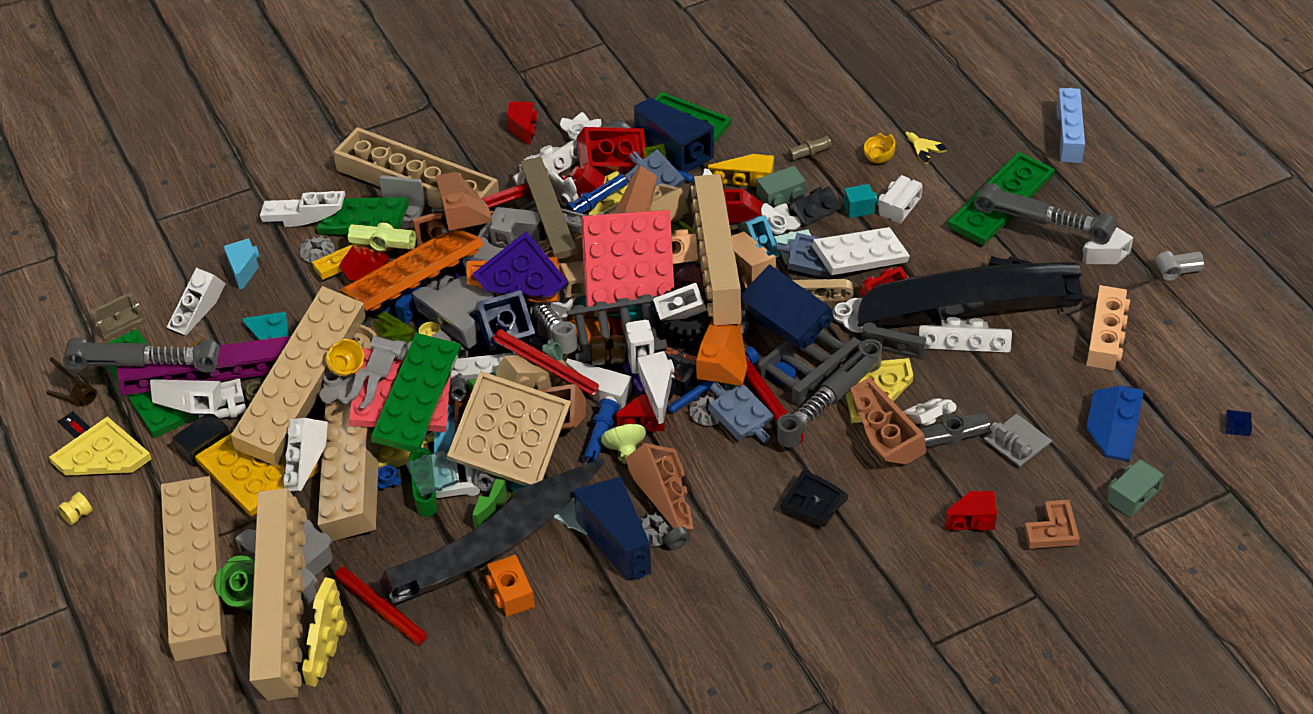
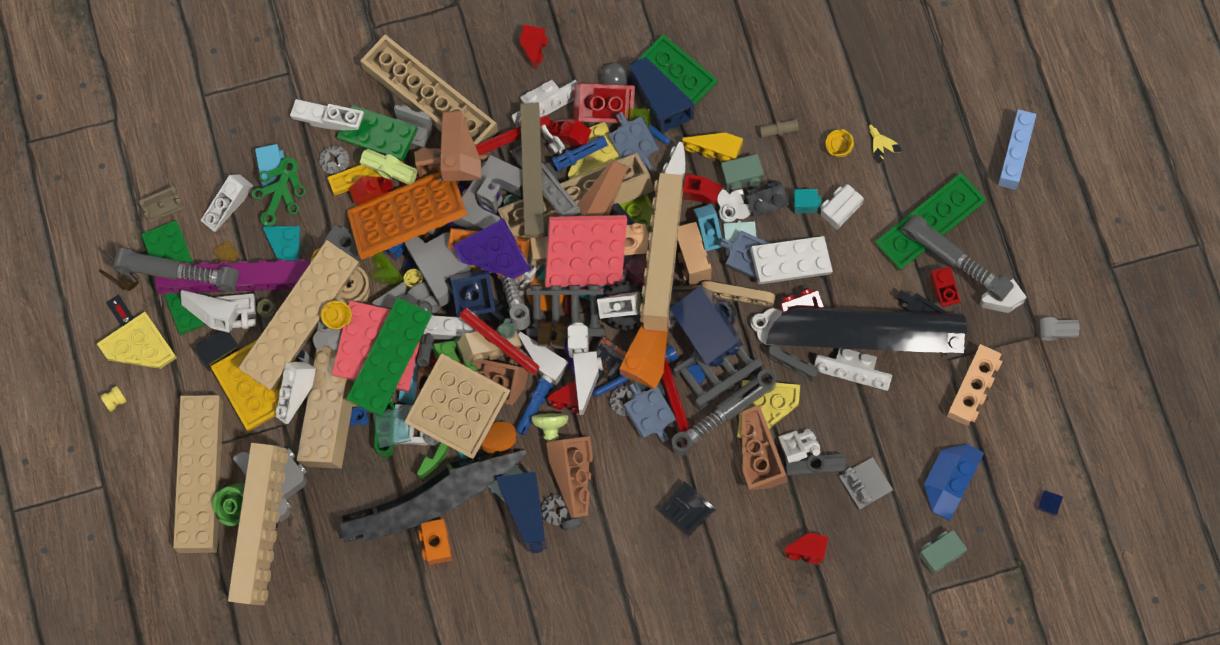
camera: 15 degrees right, 25 degrees up
(257, 278) = (280, 189): none -> green plant
(324, 632) = (292, 553): light yellow plate -> none
(378, 366) = (360, 329): light grey flag -> none
(381, 605) = (336, 537): red axle -> none
(565, 462) = (499, 437): none -> orange tile
(575, 126) = (585, 57): white plate -> none
(1038, 244) = (944, 287): none -> red slope
(1057, 530) = (869, 579): nougat plate -> none

